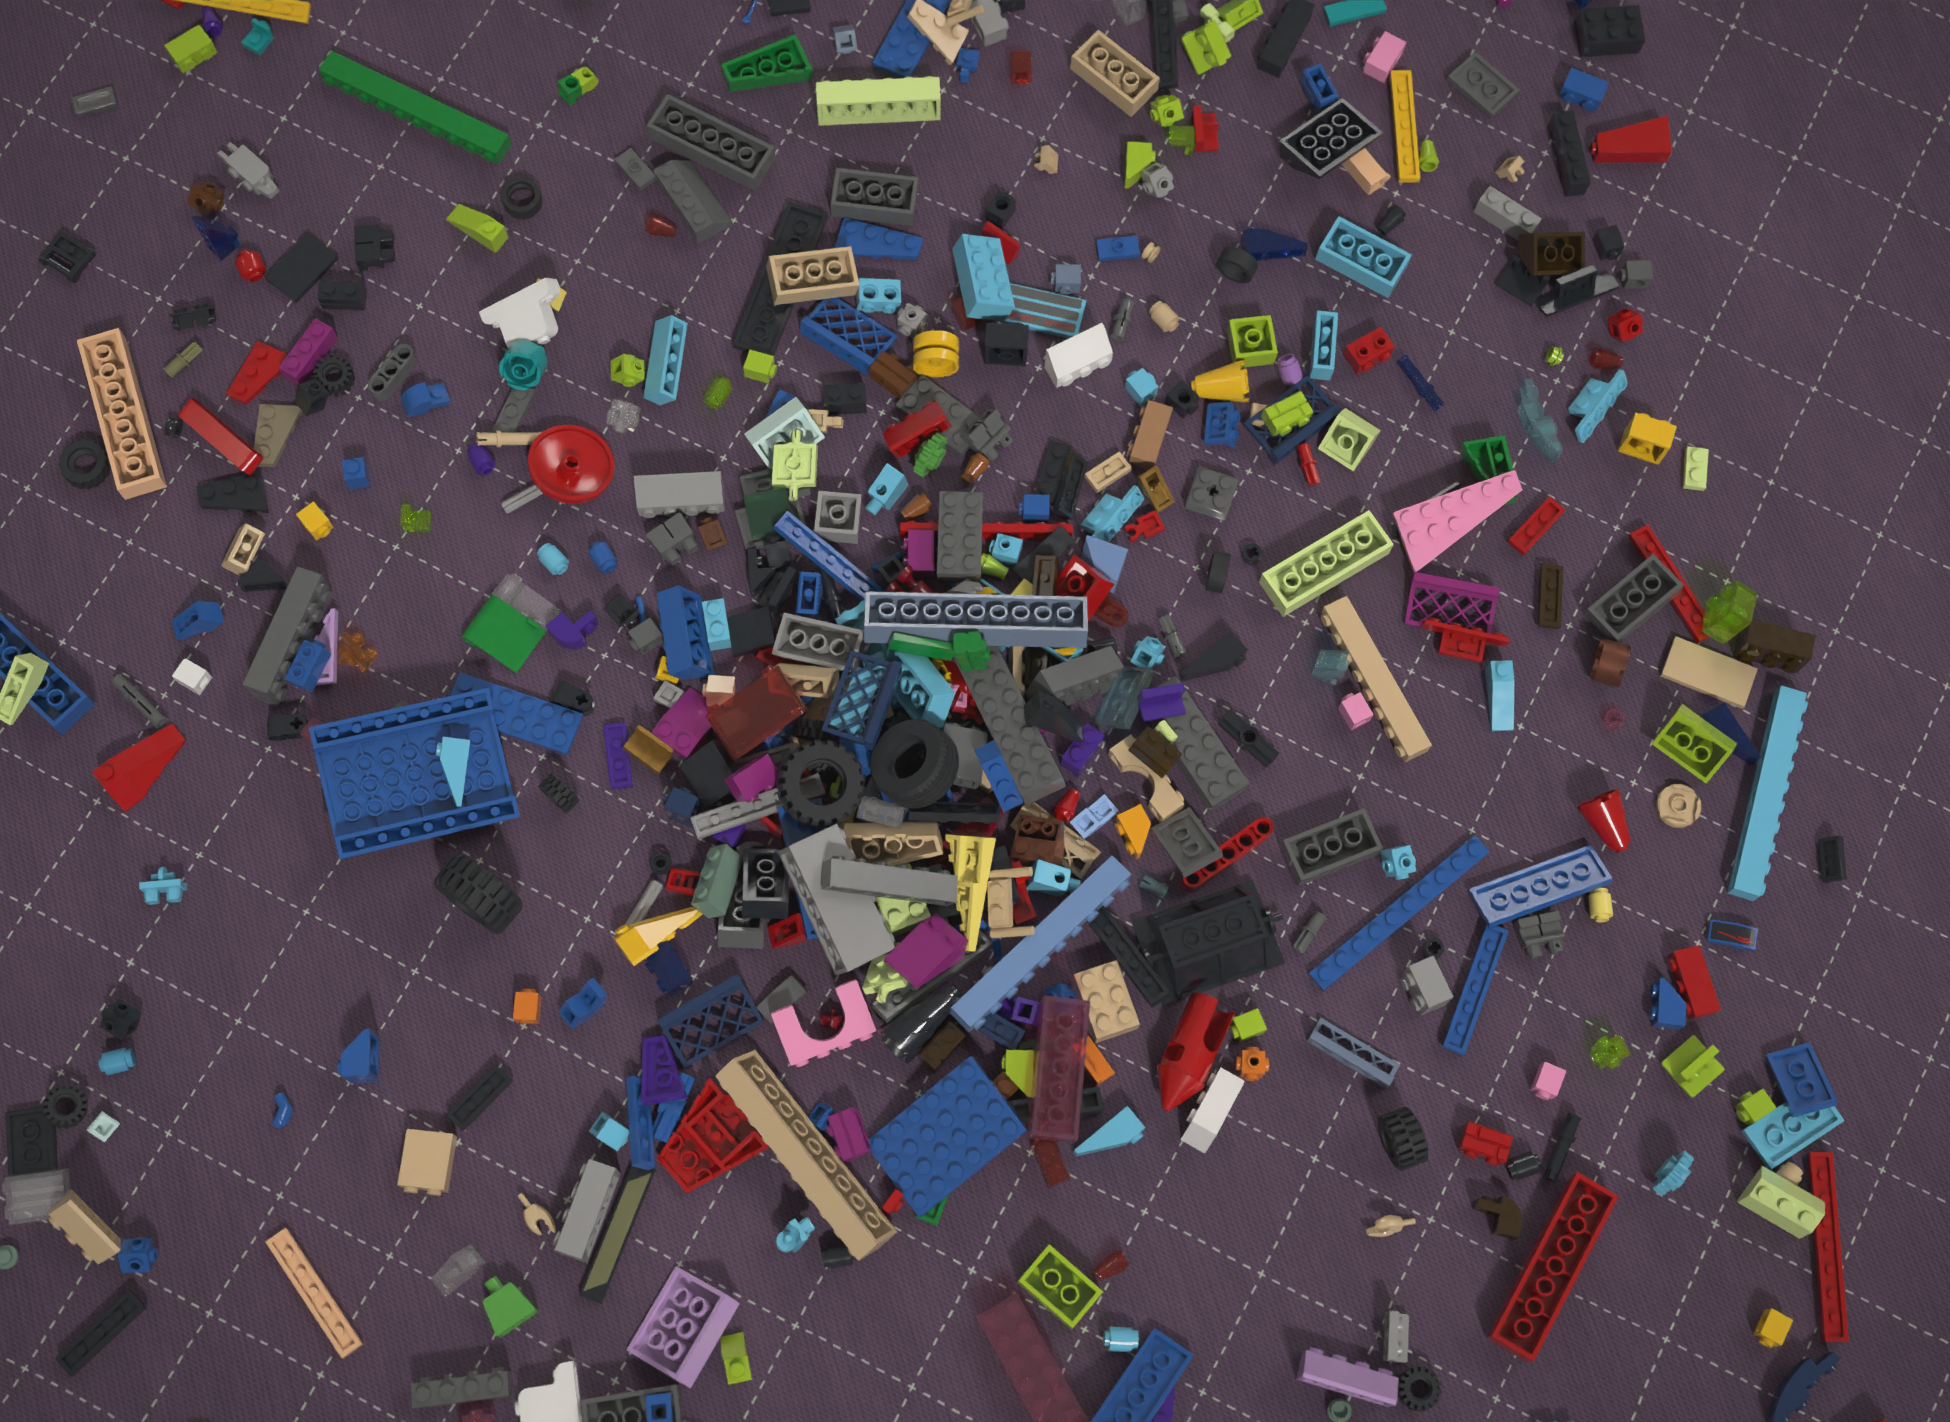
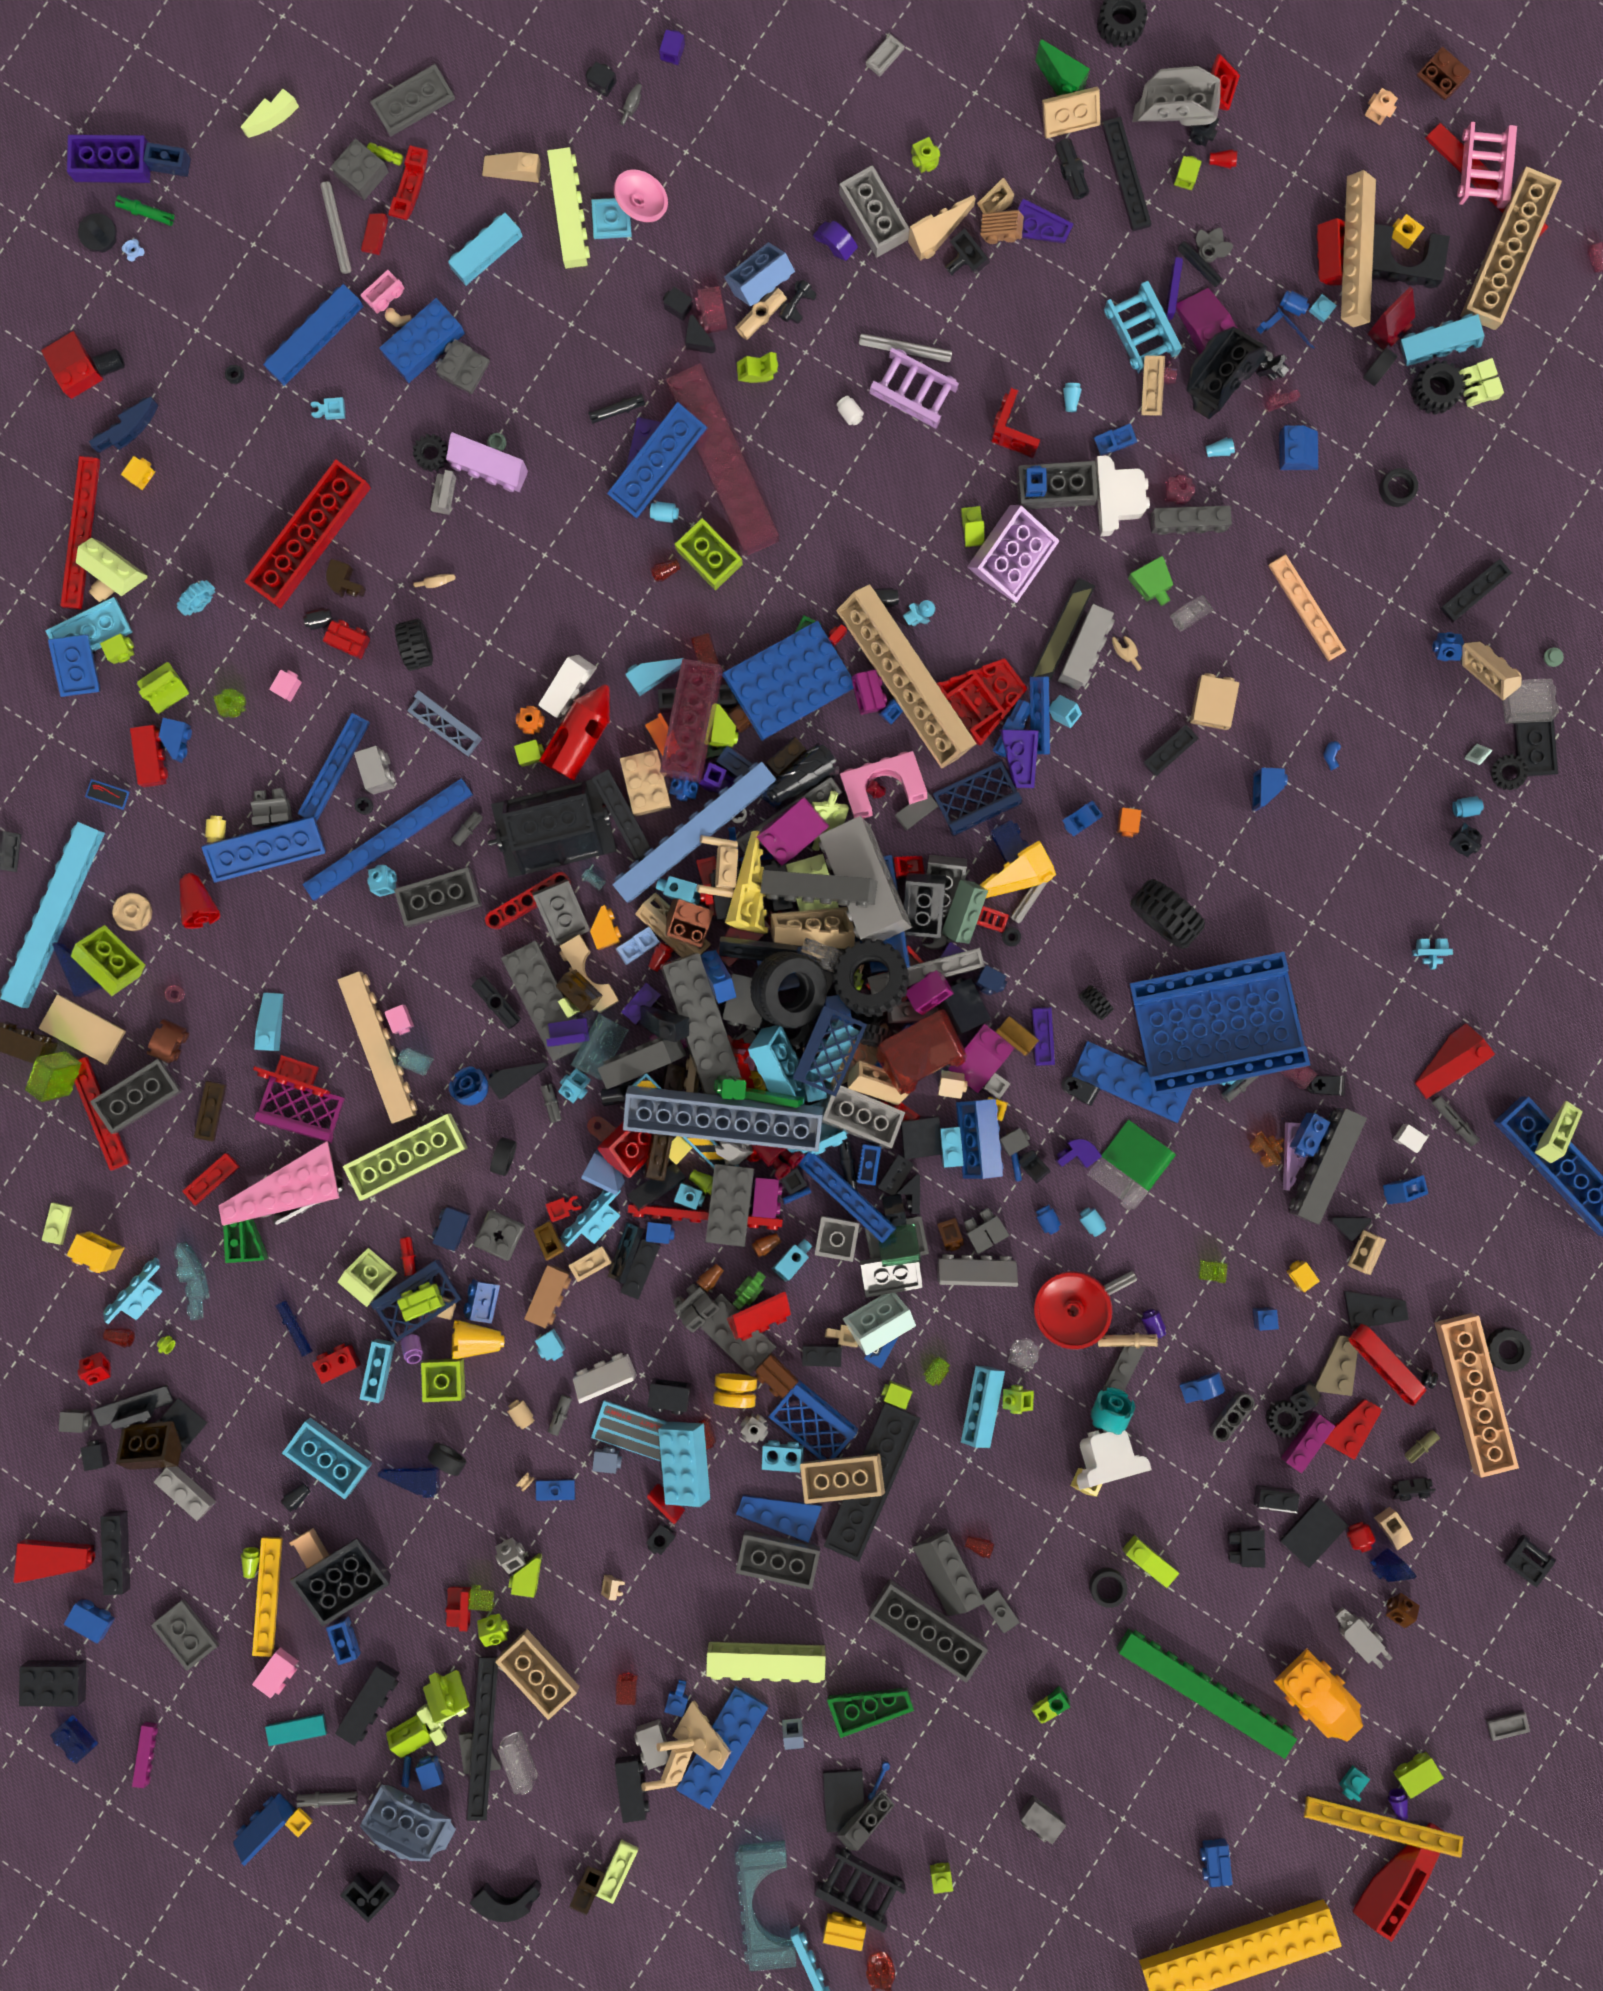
camera: 170 degrees left, 15 degrees up
(215, 277) = (1394, 1528): none -> tan slope
(292, 110) = (1320, 1696): none -> light orange slope
(453, 760) = (1185, 1033): medium azure slope -> none
(794, 465) = (872, 1287): yellowish green plate -> none
(1182, 391) = (523, 1330): black brick -> none
(1255, 559) = (472, 1180): black bush -> none
(1264, 496) = (451, 1228): none -> dark blue brick
(1266, 642) = (469, 1086): none -> blue cylinder
(1509, 168) = (174, 1542): tan tile -> none
(1562, 1146) = (283, 631): black pin -> none

